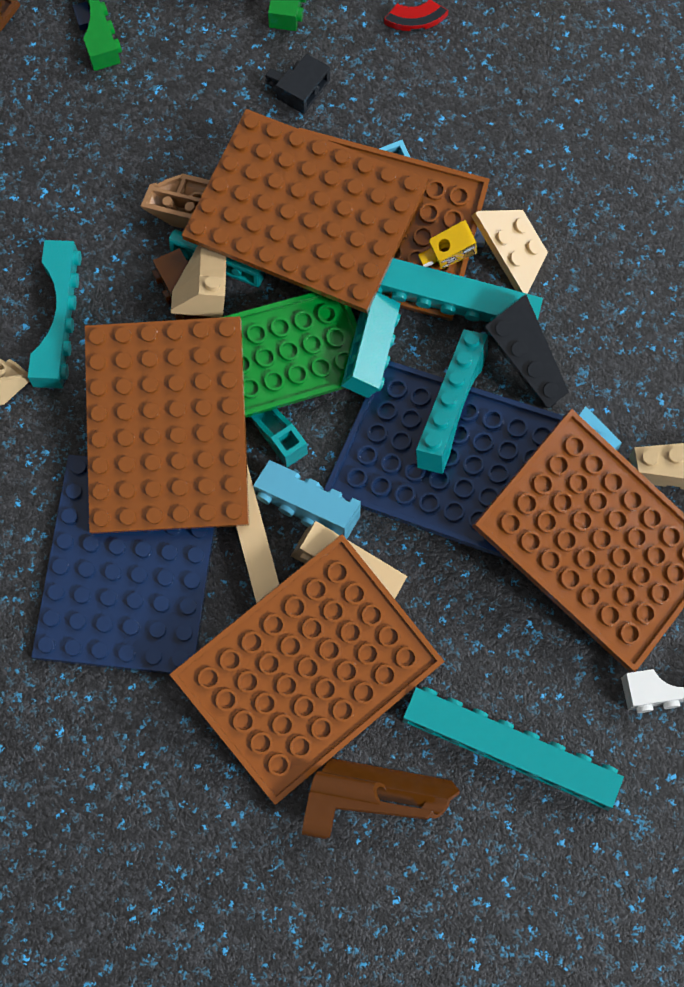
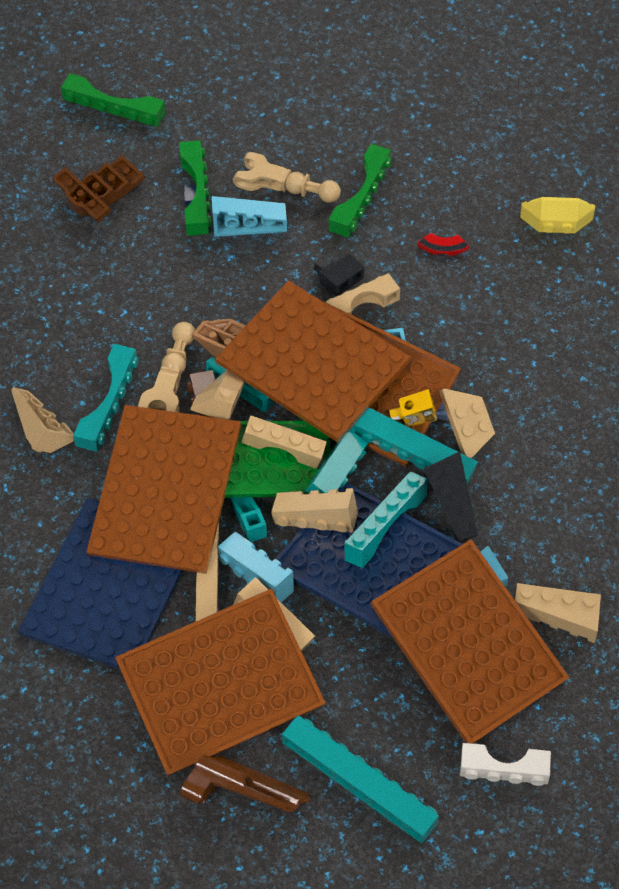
camera: 15 degrees right, 15 degrees down
(127, 252) = (173, 364): none -> tan piece
(164, 30) = (245, 216): none -> medium azure wedge
(273, 325) = (303, 447): none -> tan arch
(358, 95) = (379, 291): none -> tan arch
(363, 409) = (315, 510): none -> tan wedge

